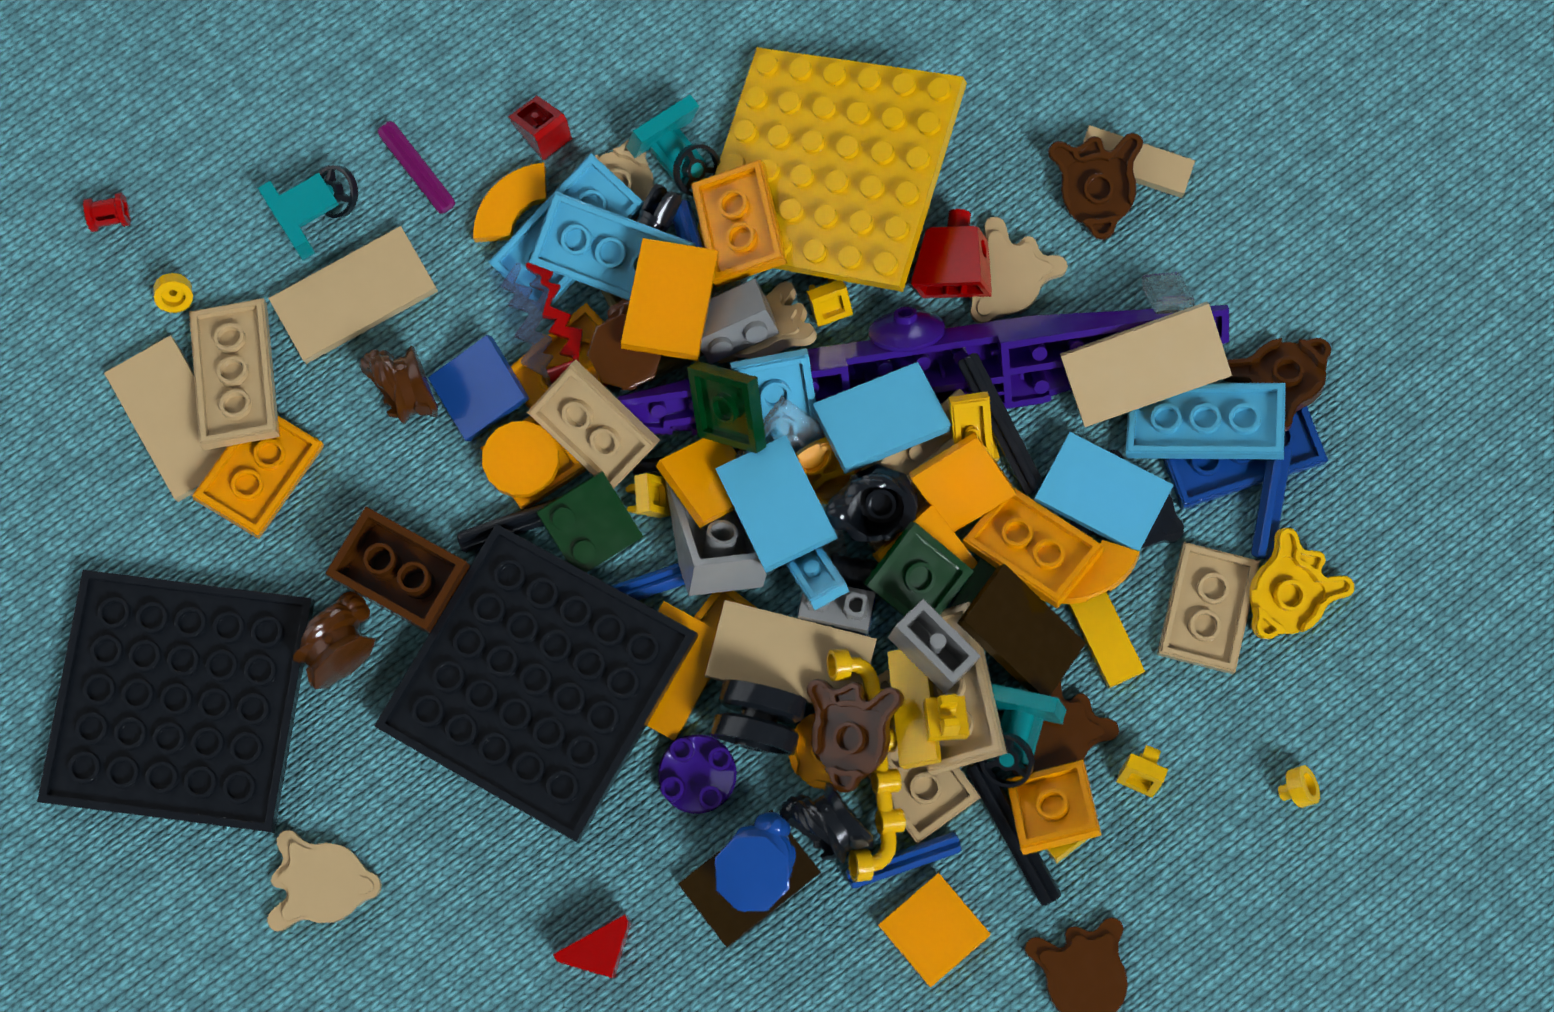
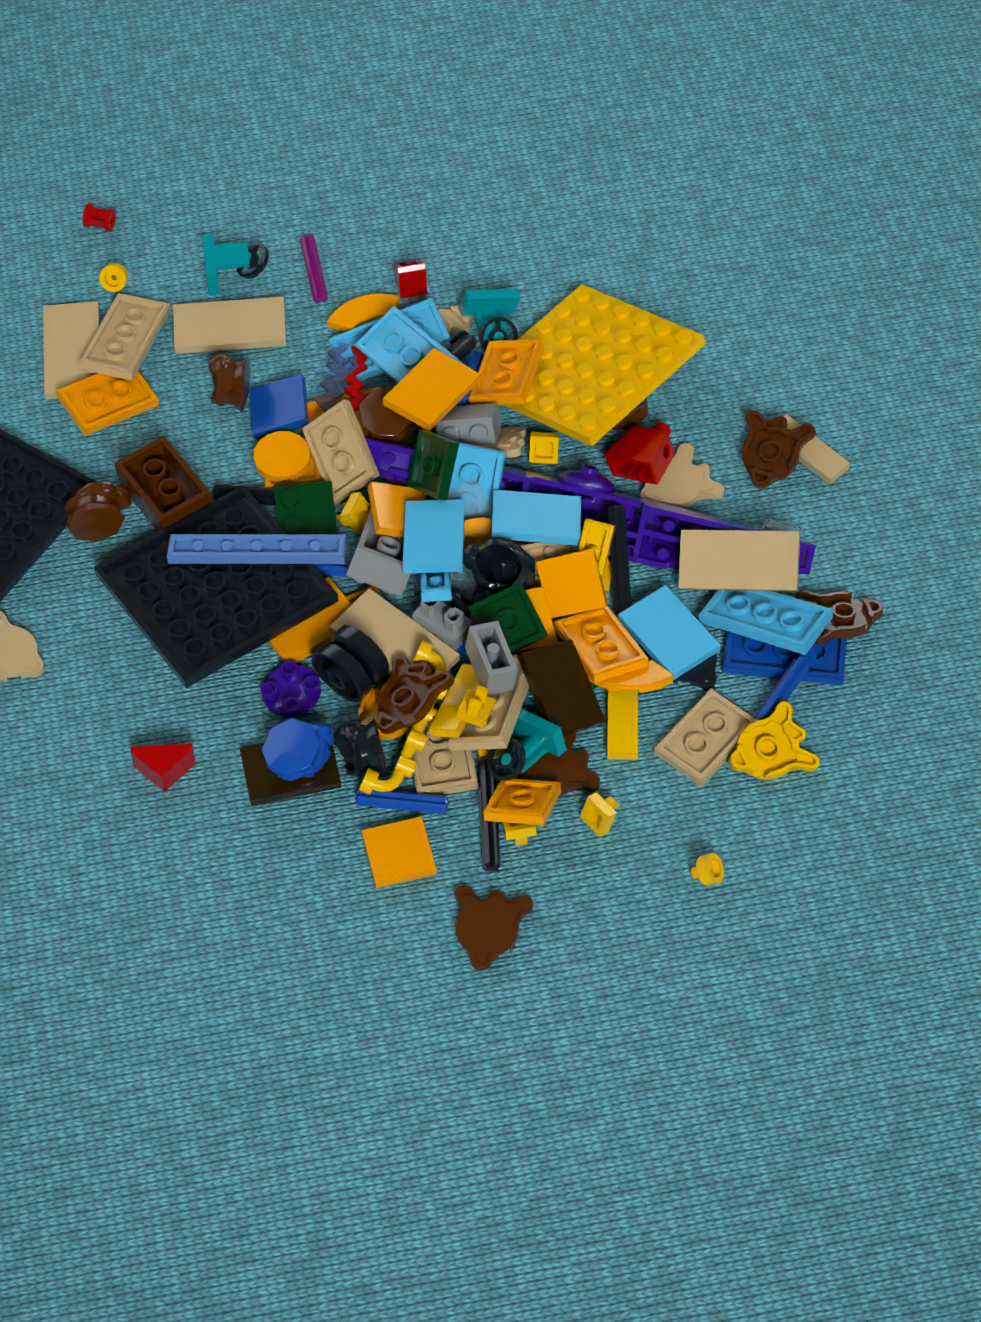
camera: 25 degrees right, 20 degrees down
(564, 614) = (257, 549): none -> medium blue tile

